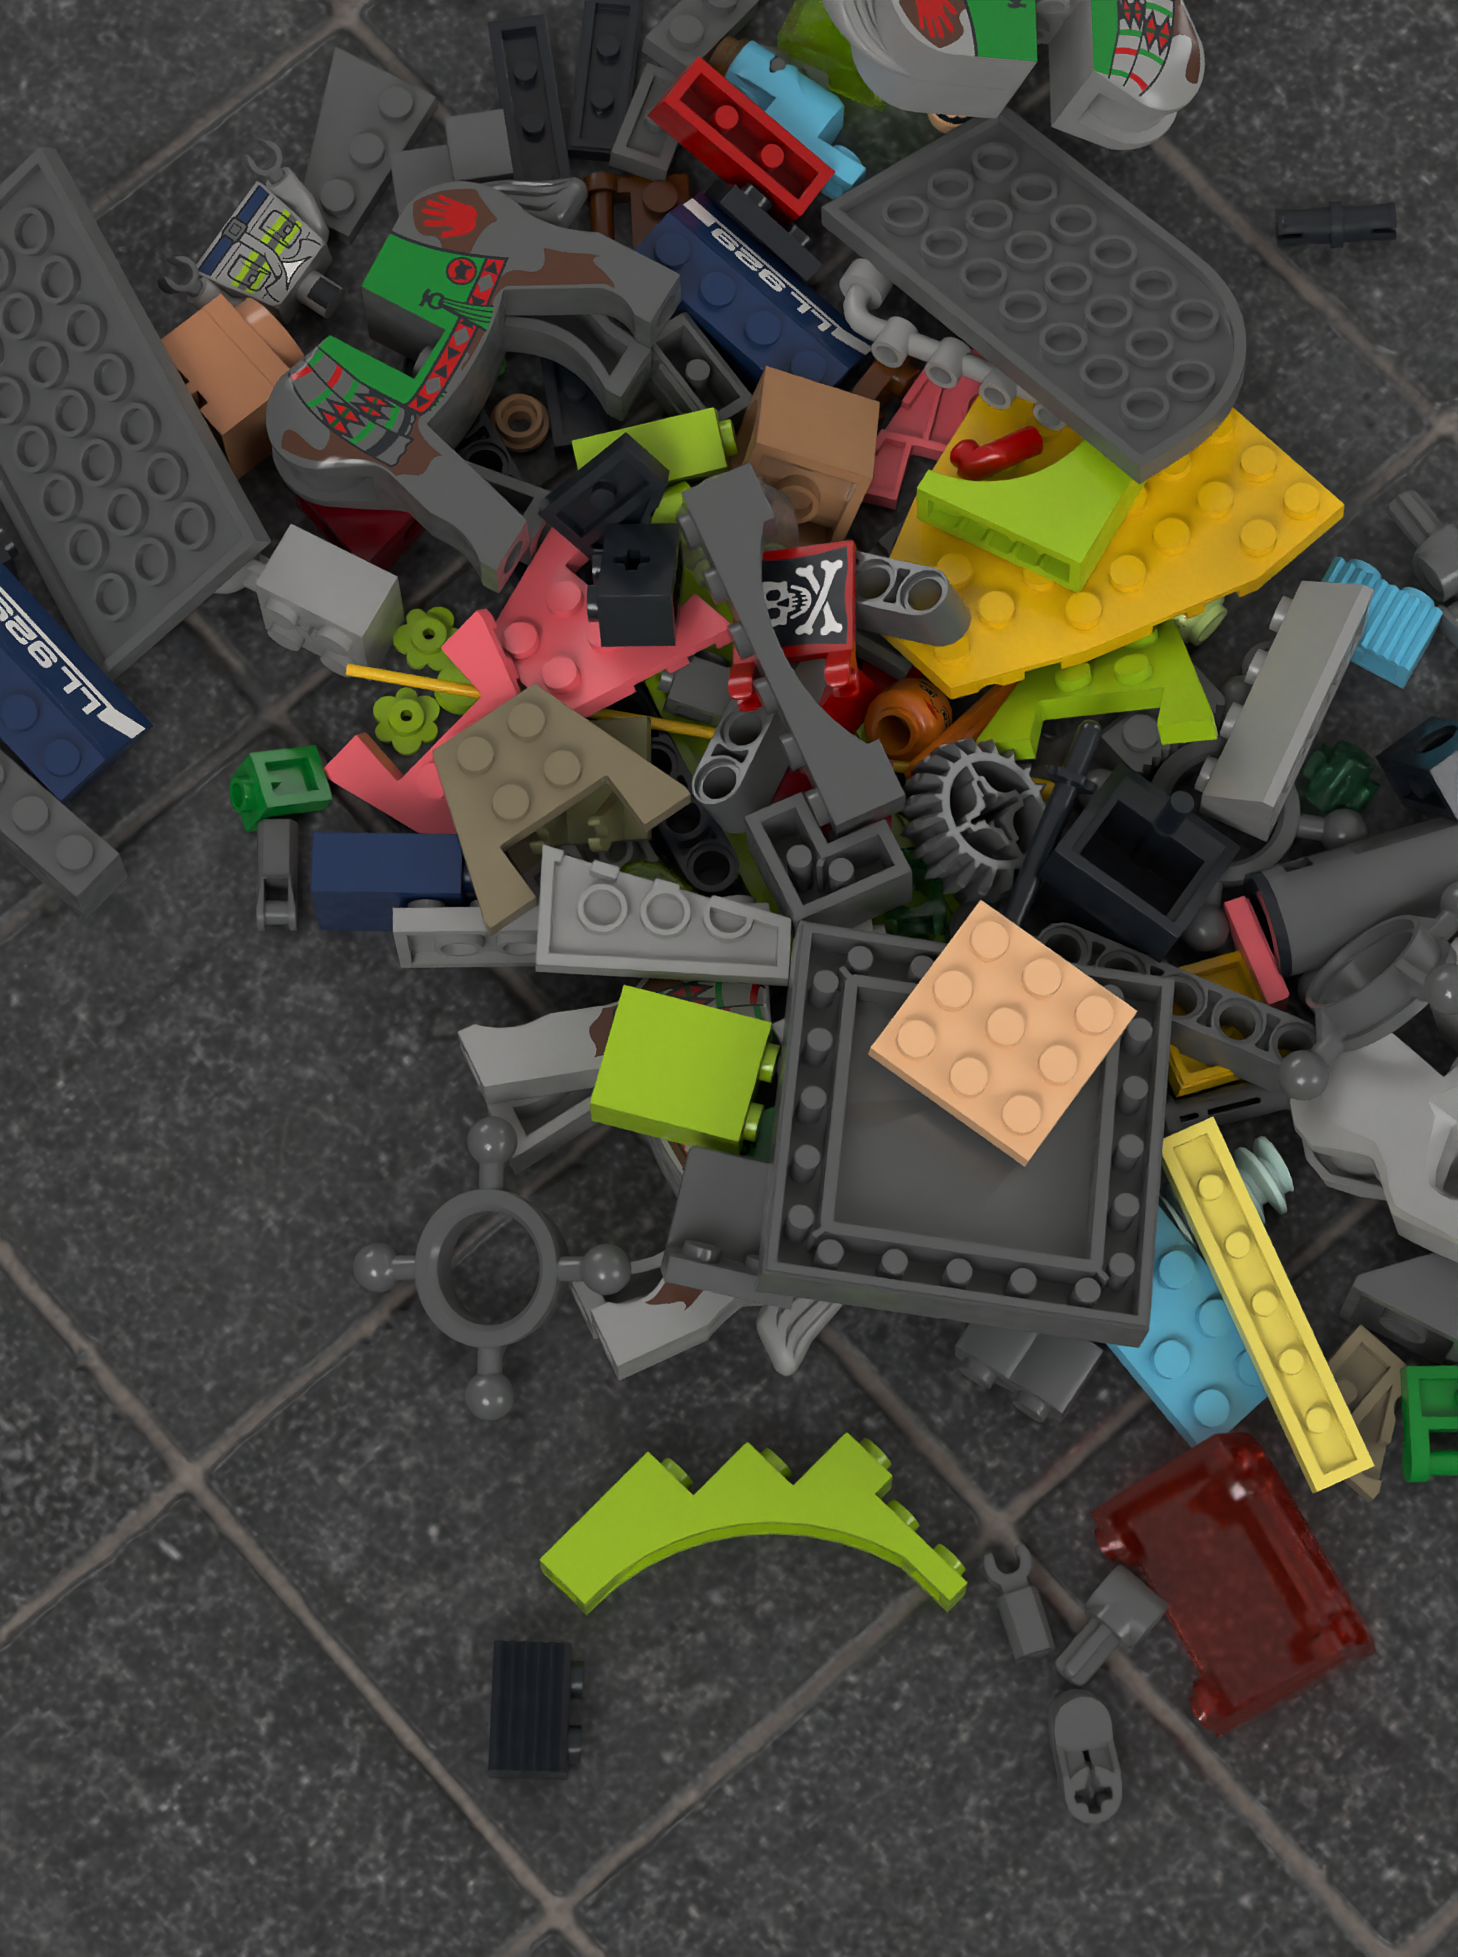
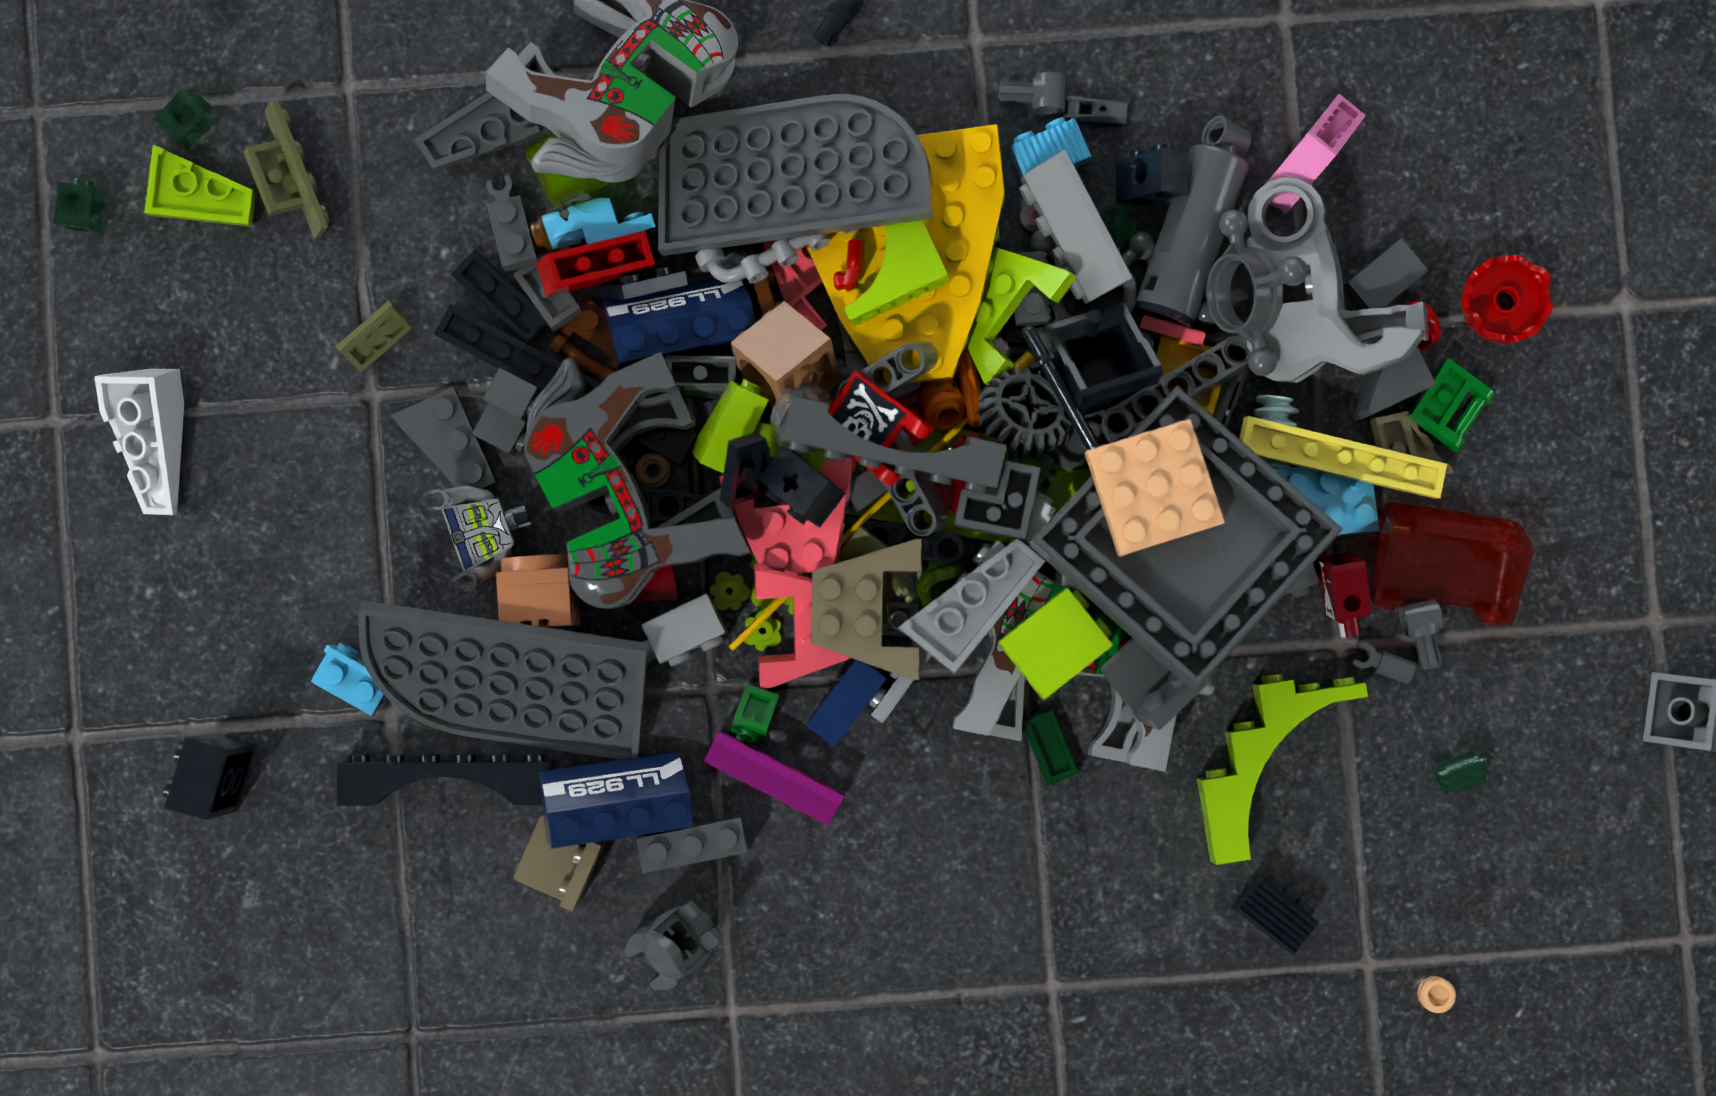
camera: 55 degrees left, 15 degrees up
(211, 876) = (774, 777): none -> magenta fence
(277, 870) = (791, 743): dark grey bar -> none
(380, 1267) = (1113, 744): dark grey piece -> none
(556, 1191) = (1050, 746): none -> dark green tile
(946, 1833) = (1461, 772): none -> clear green brick
(1086, 1787) = (1457, 679): dark grey piece -> none
(1089, 1435) = (1342, 578): none -> dark red torso

